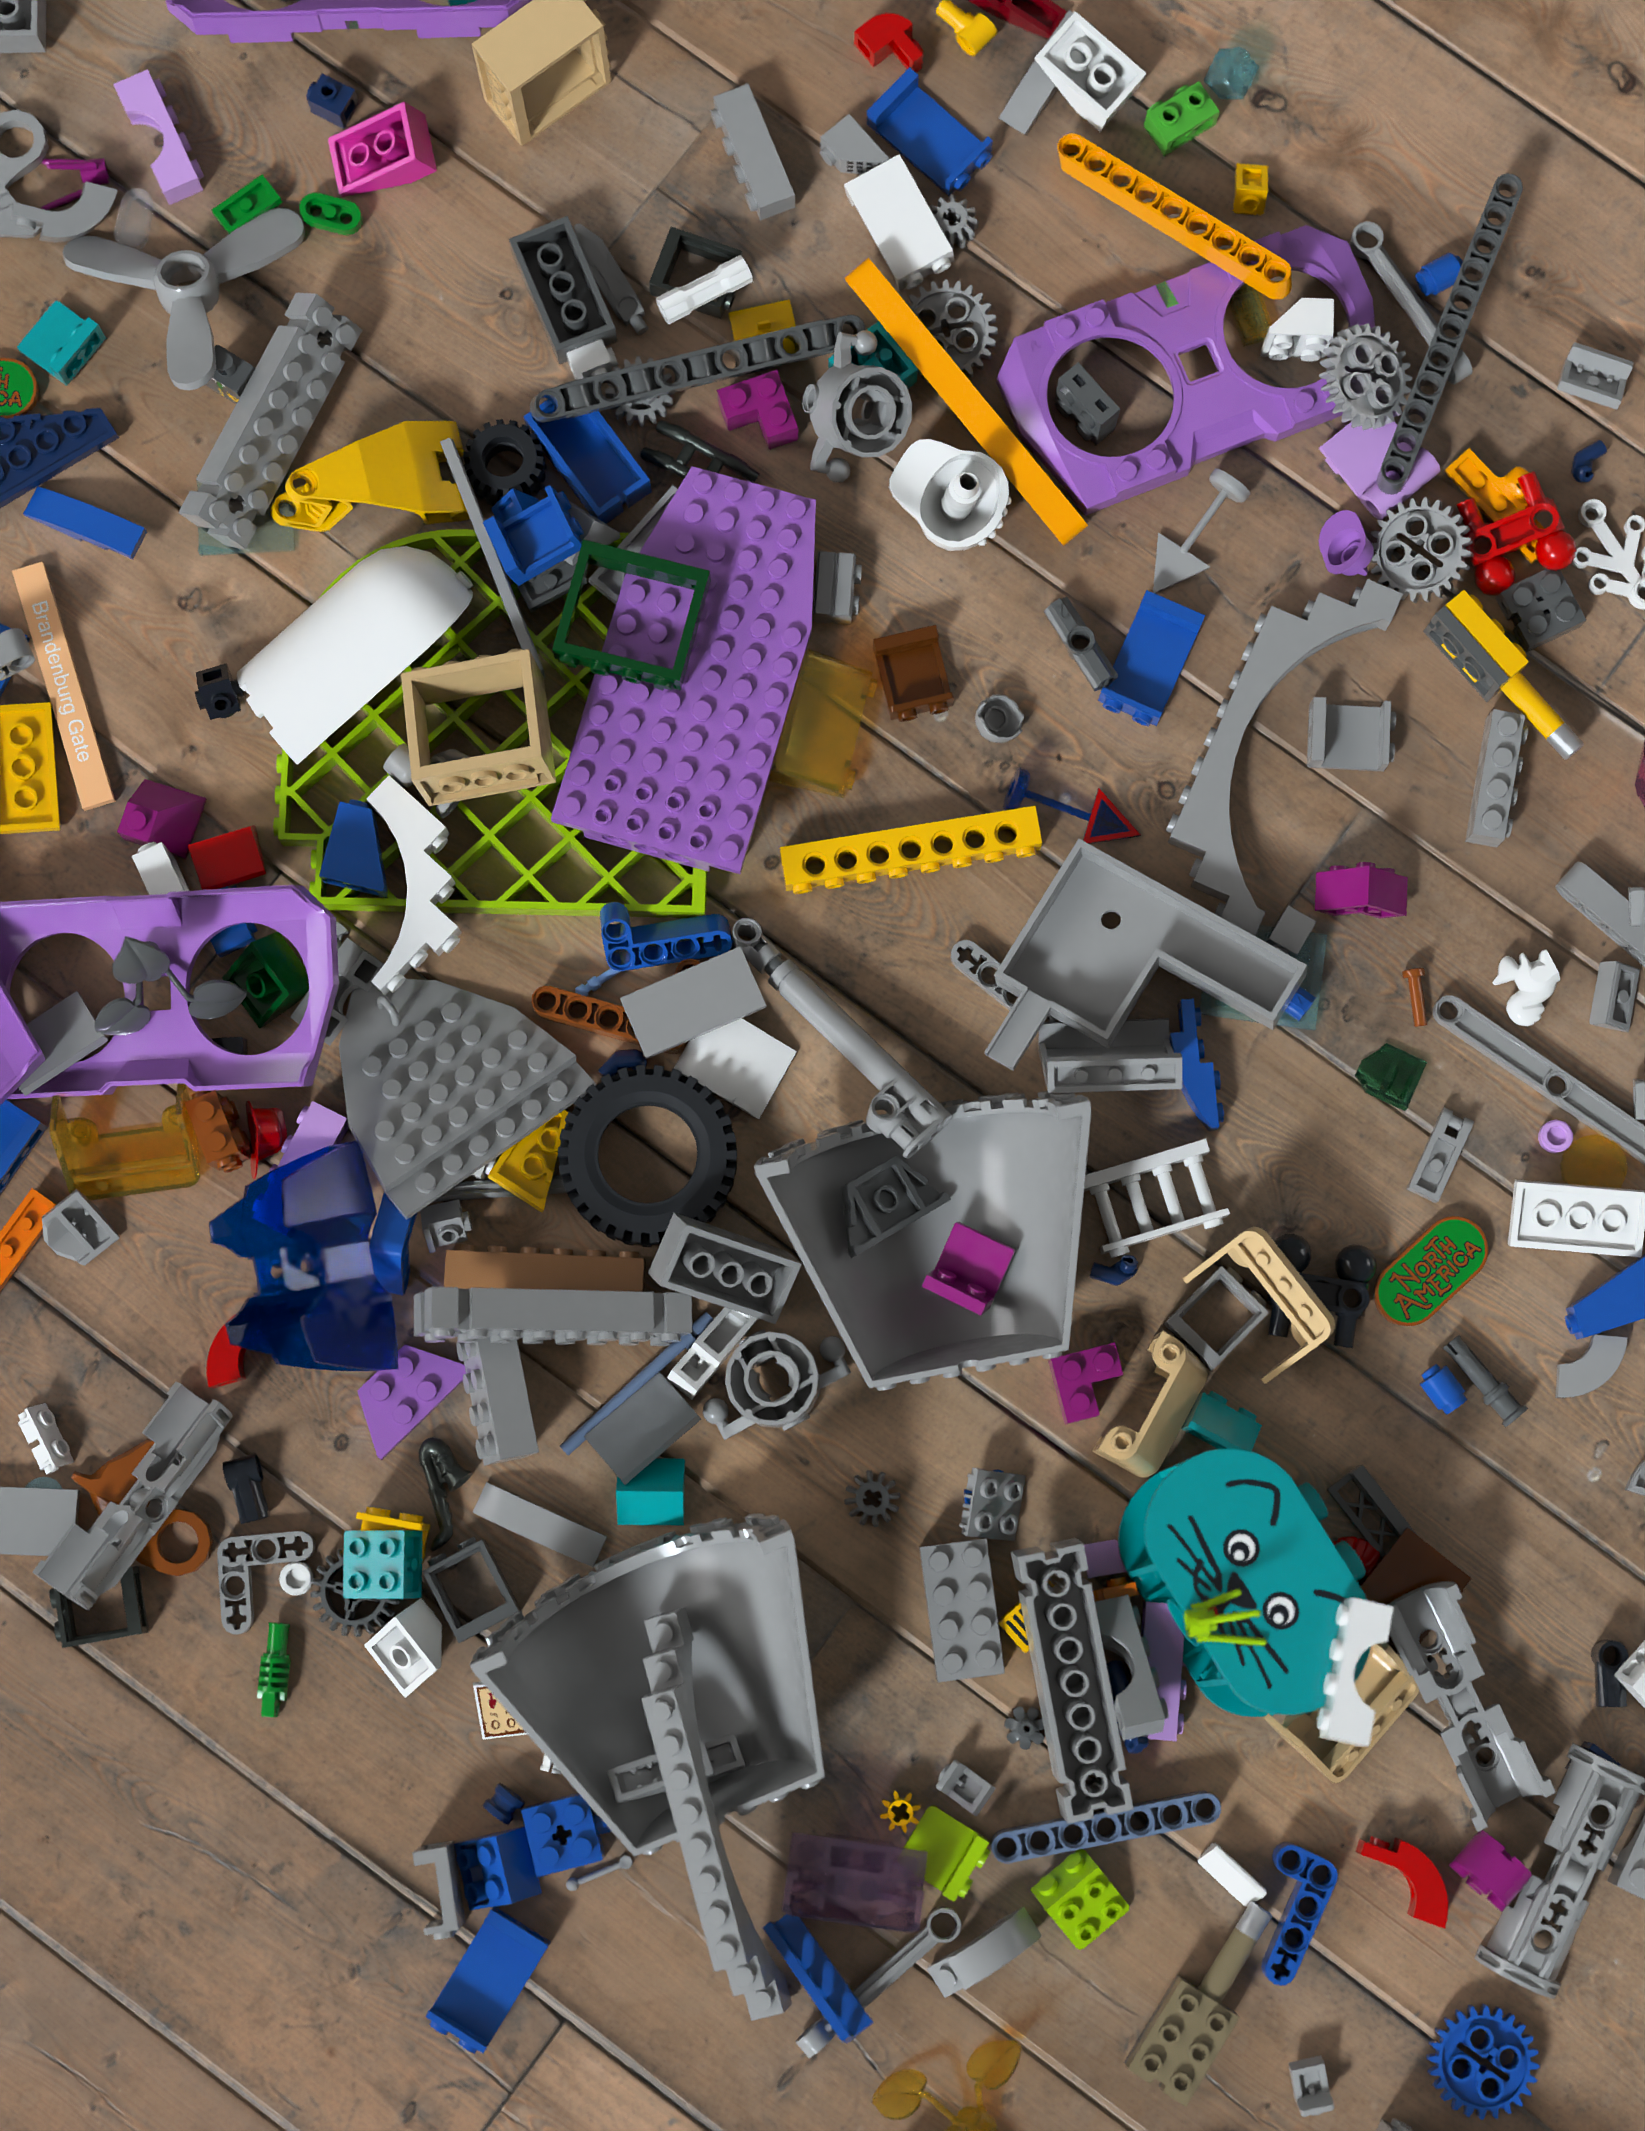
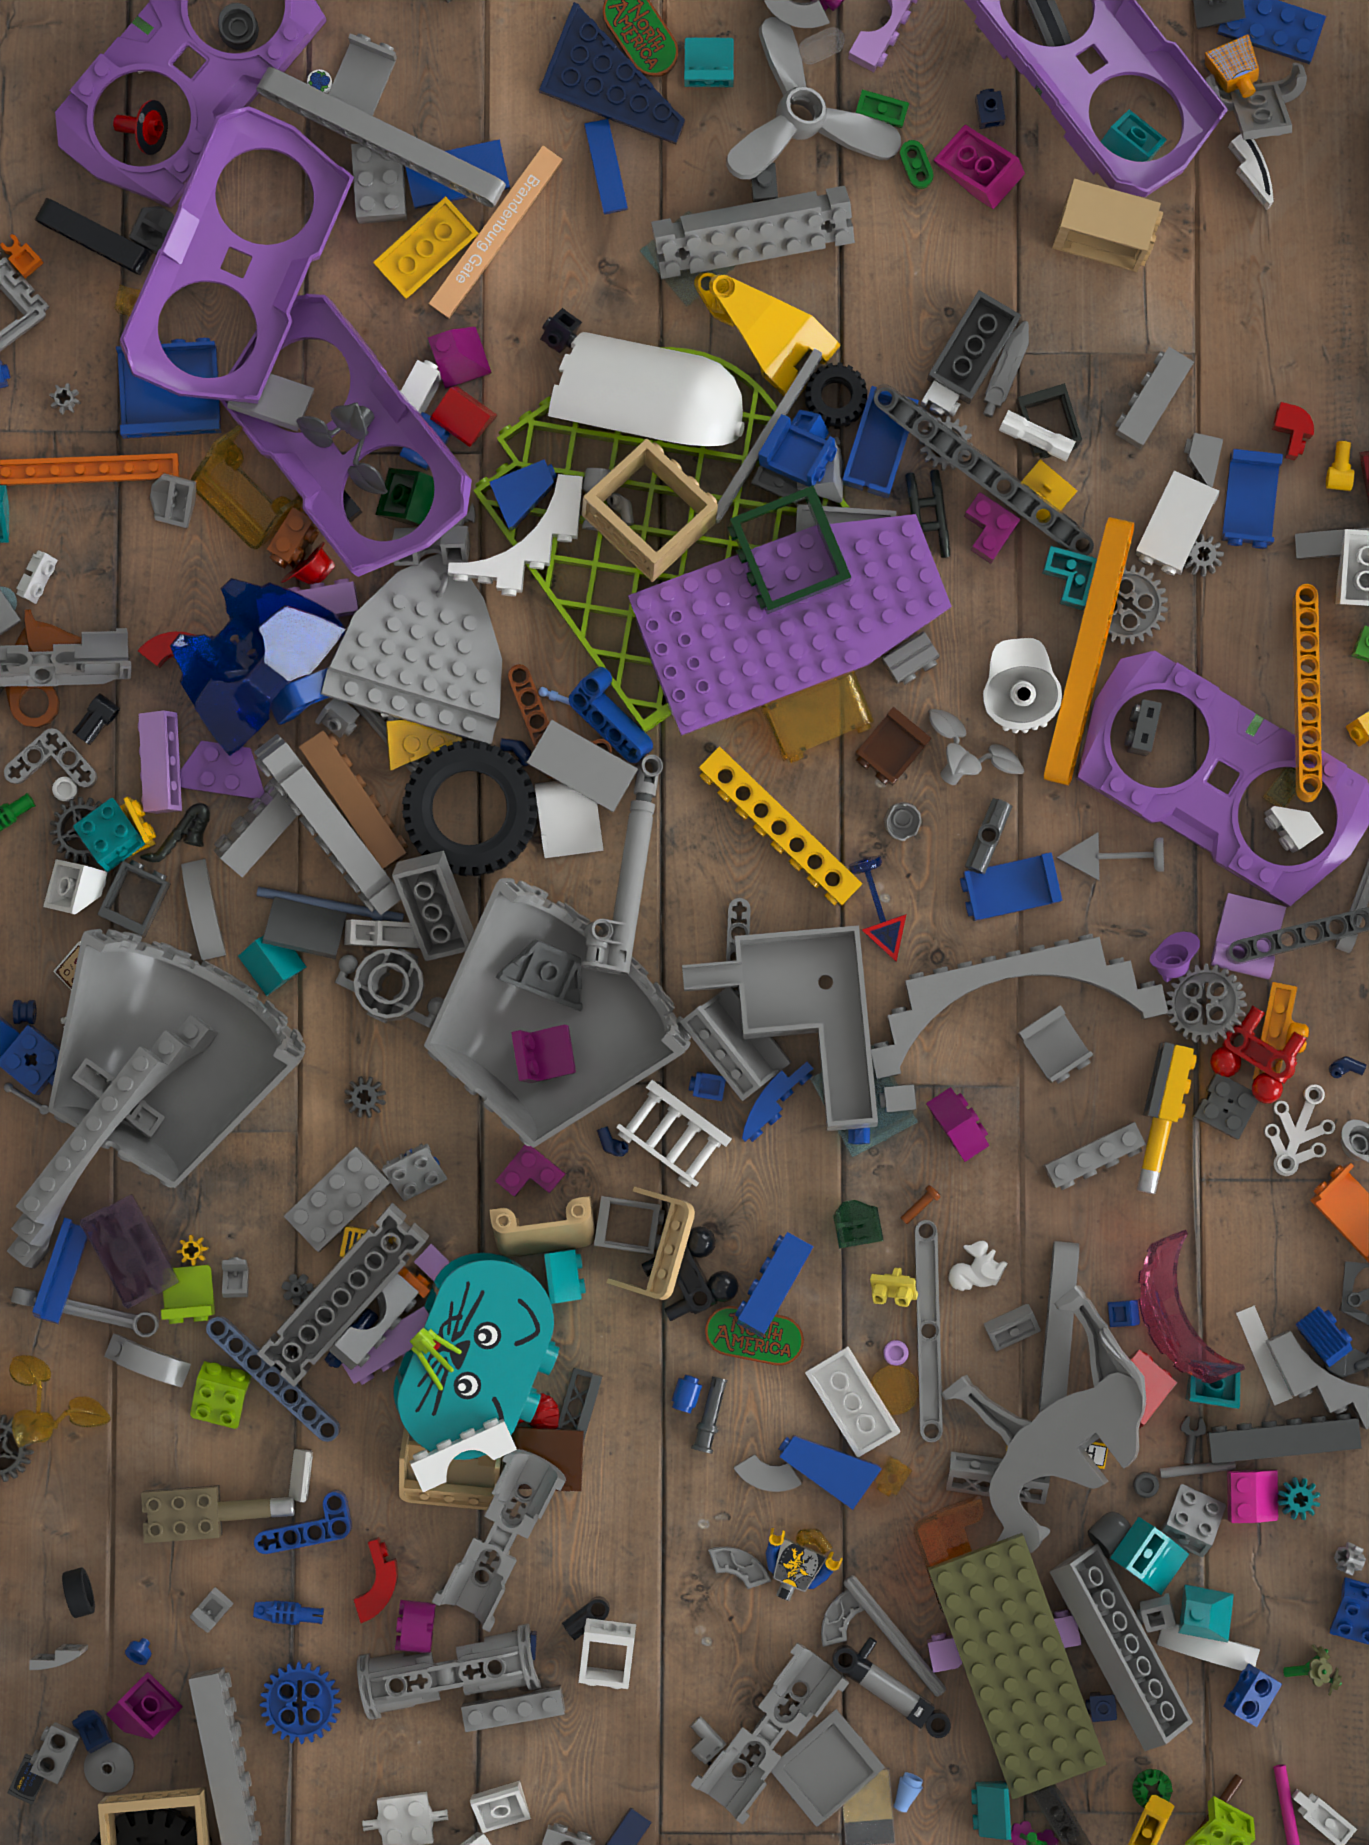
camera: 60 degrees right, 5 degrees up
(346, 1452) = (160, 762): none -> lavender brick
(830, 404) = (1025, 569): light grey piece -> none
(986, 604) = (961, 761): none -> light grey plant
(1129, 1124) = (707, 1086): none -> blue bracket
(1365, 376) = (1268, 899): light grey gear -> none
(1372, 2003) = (286, 1612): none -> blue hinge
(1395, 1206) = (774, 1285): none -> blue piece
(1439, 1156) = (829, 1290): light grey plate -> none
(1486, 1084) = (893, 1285): none -> light yellow hips

